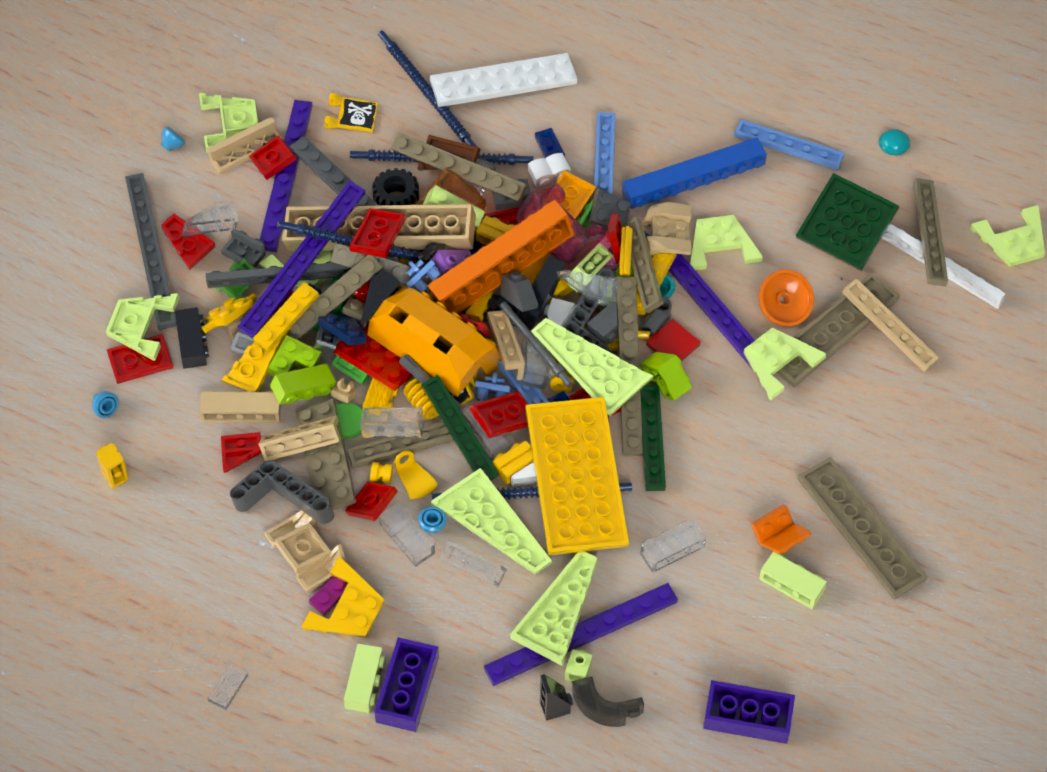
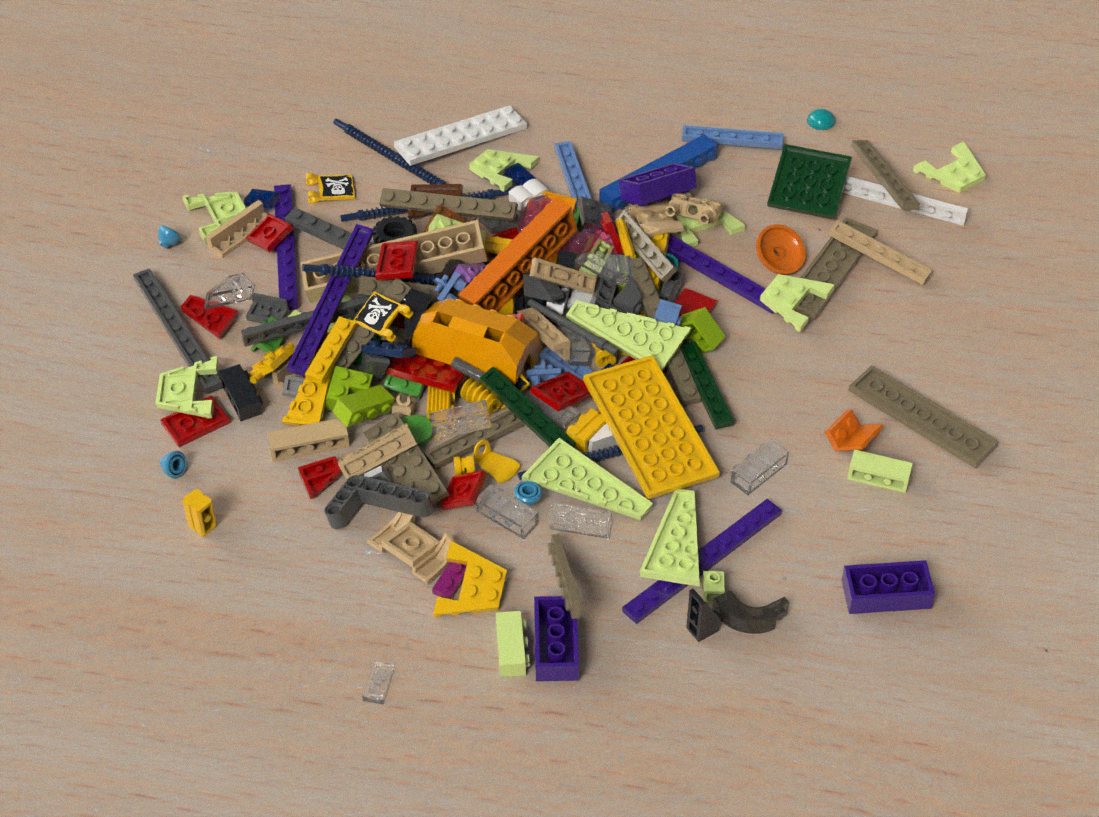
camera: 15 degrees left, 10 degrees down
(280, 114) = (267, 197): none -> clear blue plate
(294, 466) = (379, 473): none -> light grey plate
(342, 290) = (379, 314): none -> flag
(431, 628) = (564, 574): none -> dark tan plate
(526, 120) = (493, 165): none -> yellowish green wing
(541, 286) = (562, 276): none -> tan plate
(636, 353) = (668, 312): none -> medium blue brick
(683, 191) = (657, 184): none -> dark purple brick
(712, 228) = (707, 210): none -> tan piece

